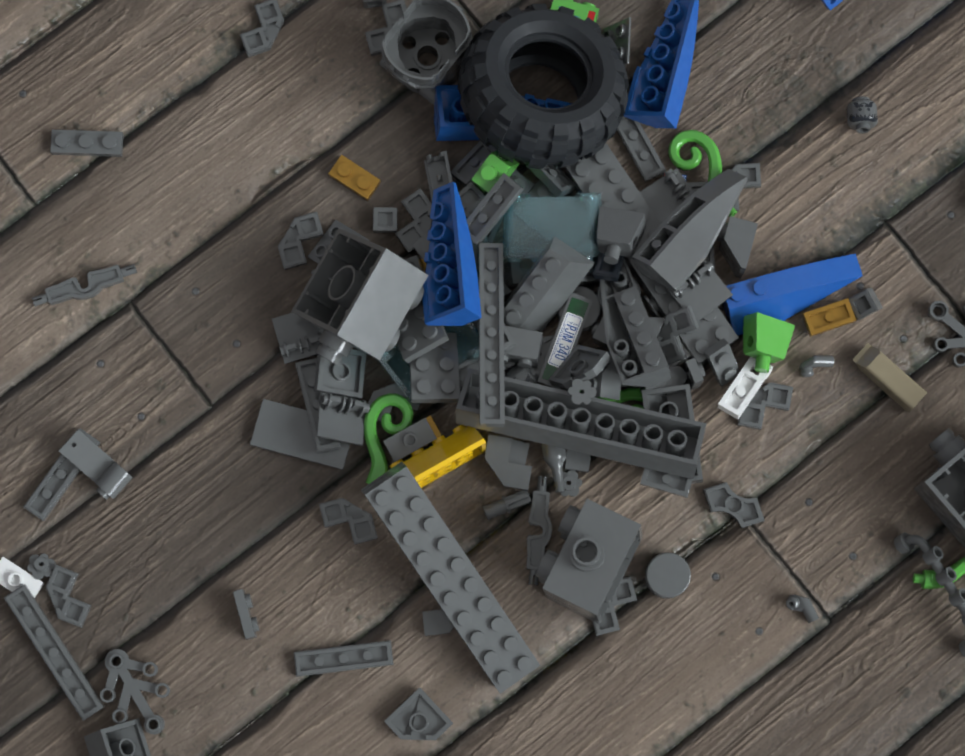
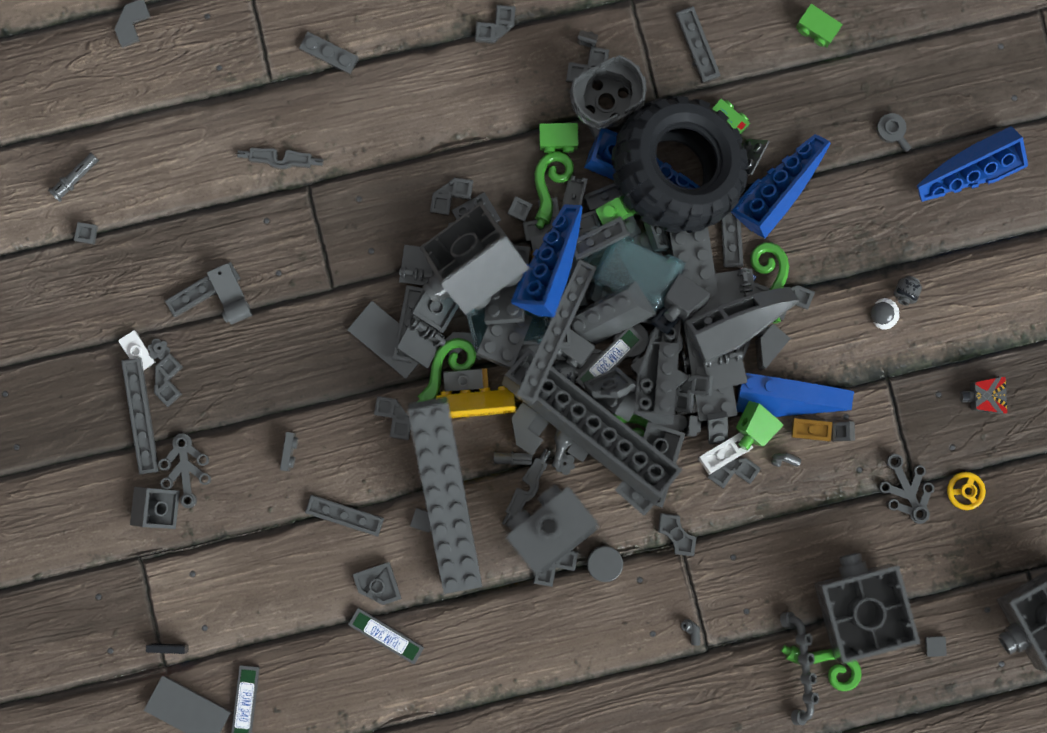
camera: 25 degrees right, 5 degrees up
(354, 177) = (512, 167): pearl gold plate -> none
(391, 120) = (558, 137): none -> bright green brick
(414, 205) = (546, 205): none -> bright green plant
(580, 386) = (607, 406): dark grey plant -> none
(849, 152) = (885, 313): none -> dark grey hair
(889, 377) = (835, 494): dark tan piece -> none

